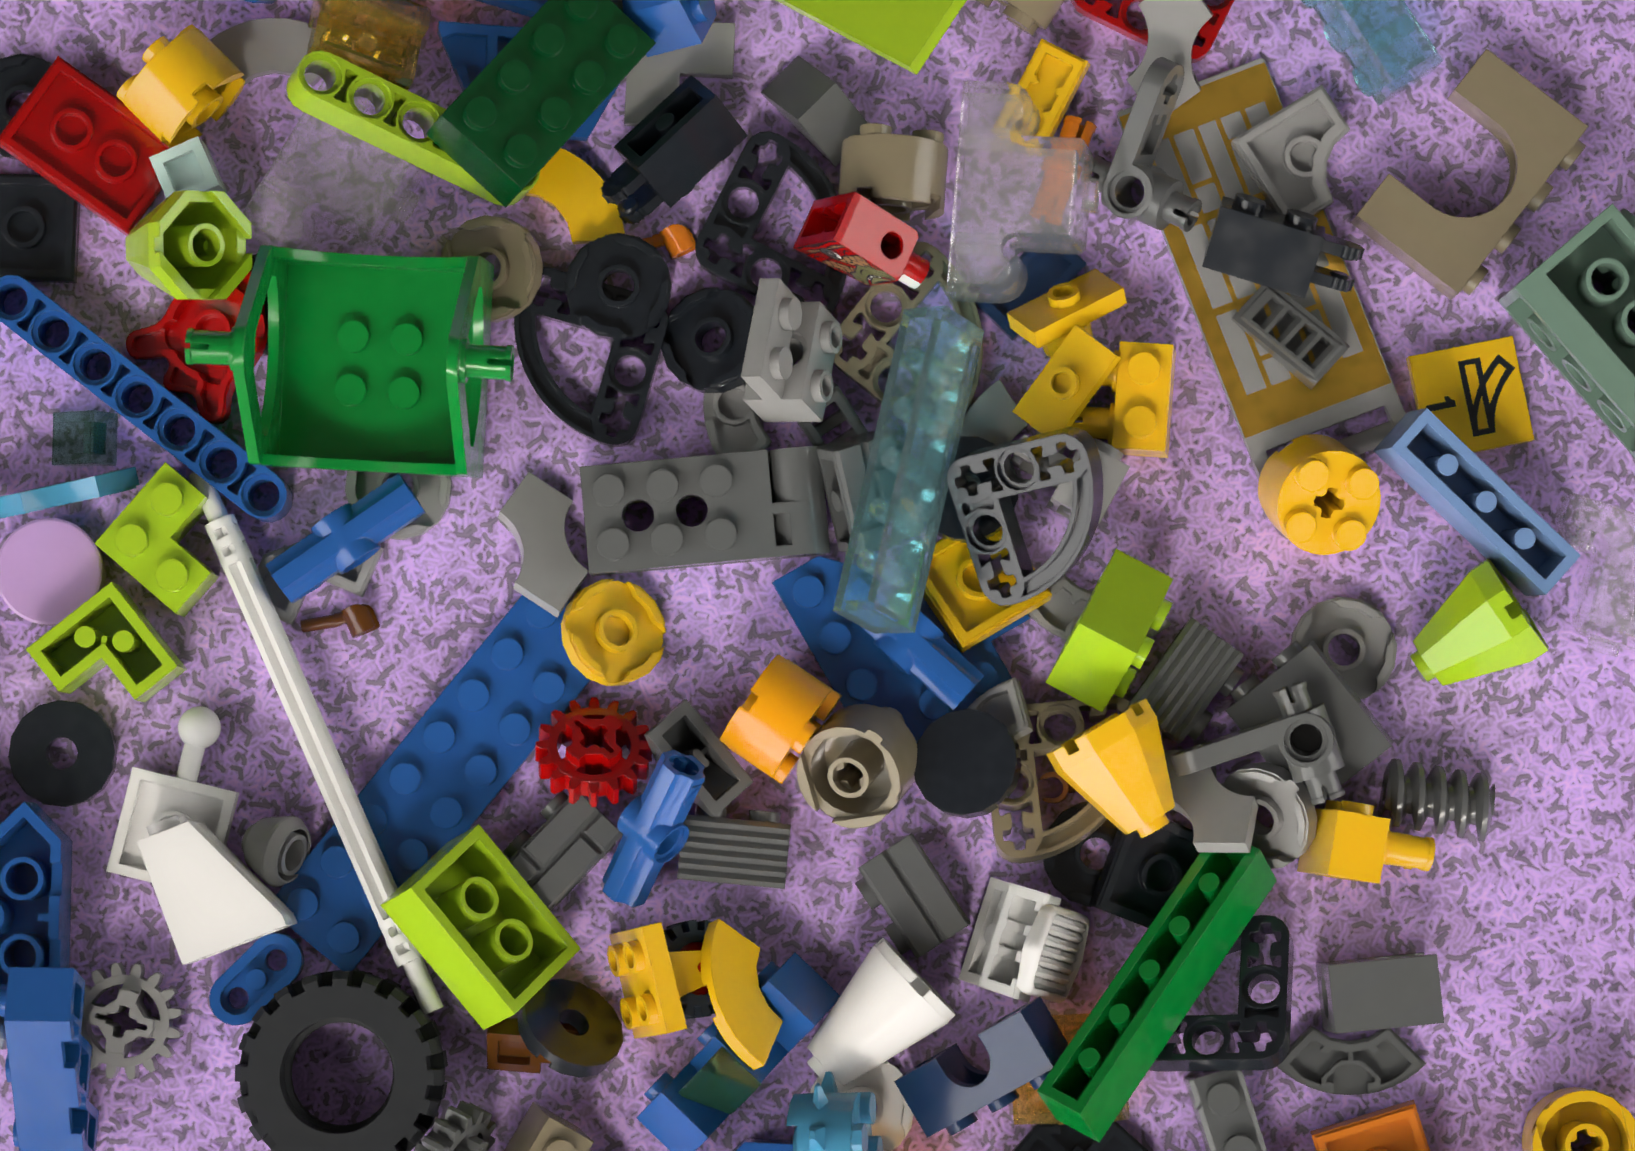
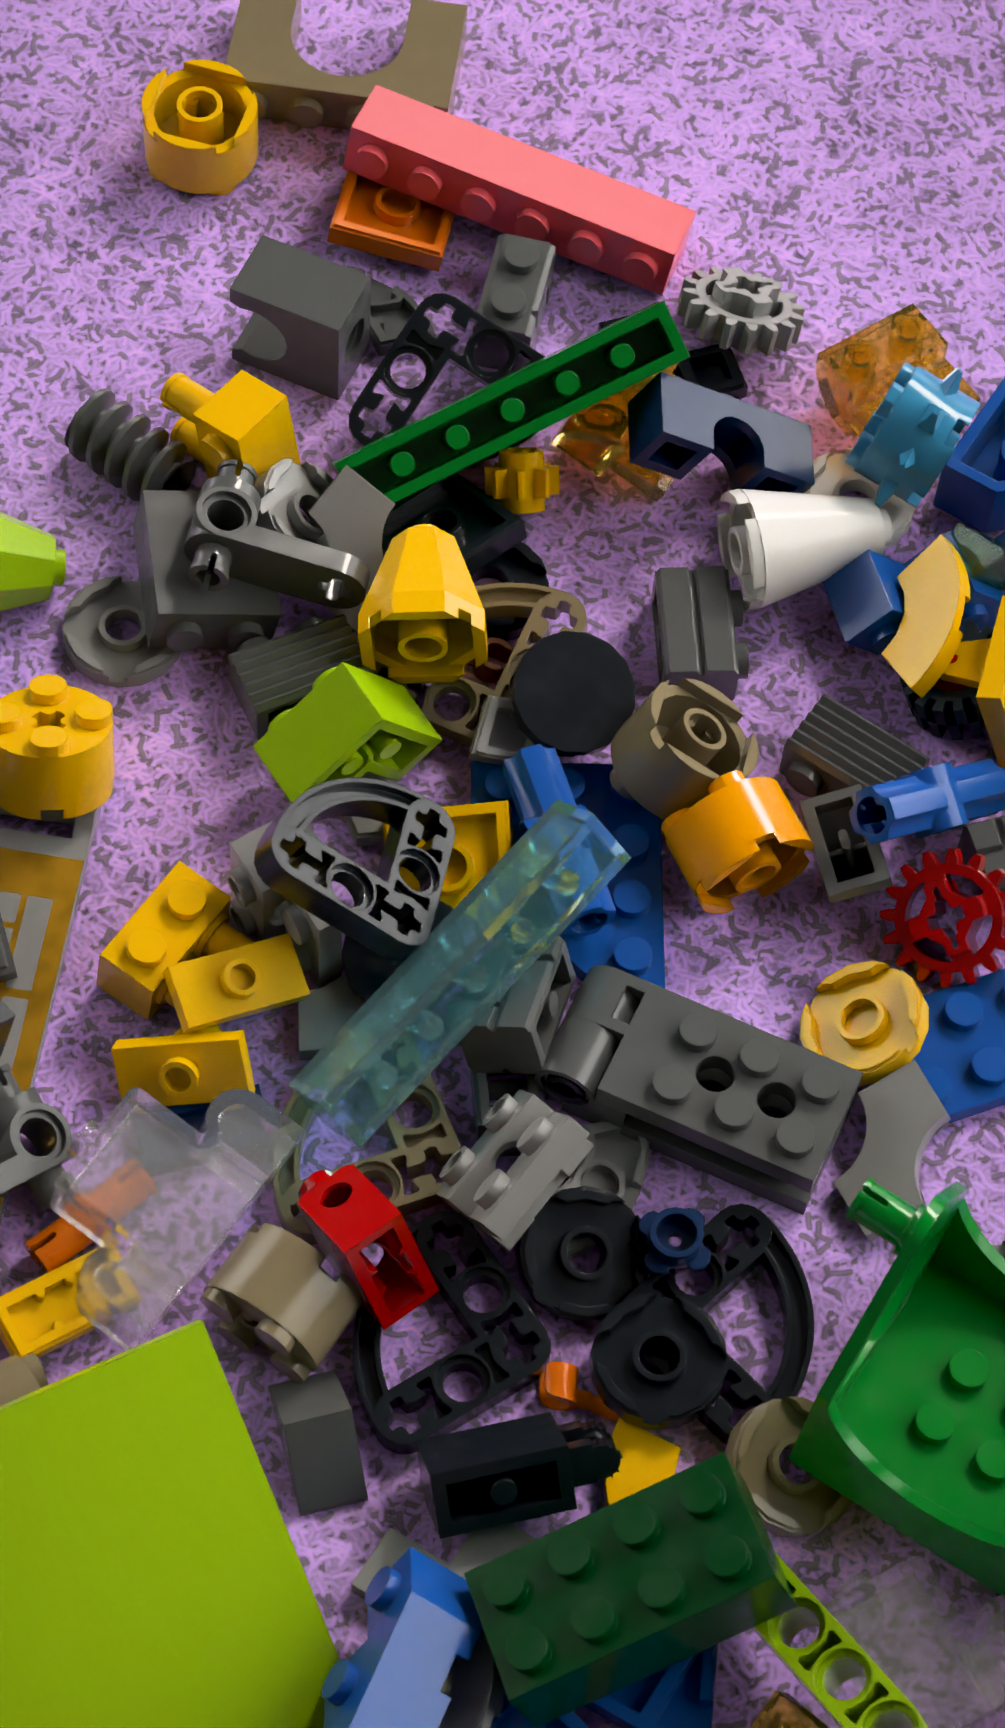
camera: 155 degrees left, 25 degrees down
(655, 363) = (674, 1222): none -> dark blue plate
(1025, 944) = (618, 531): white piece -> none
(1113, 948) = (522, 479): none -> yellow gear

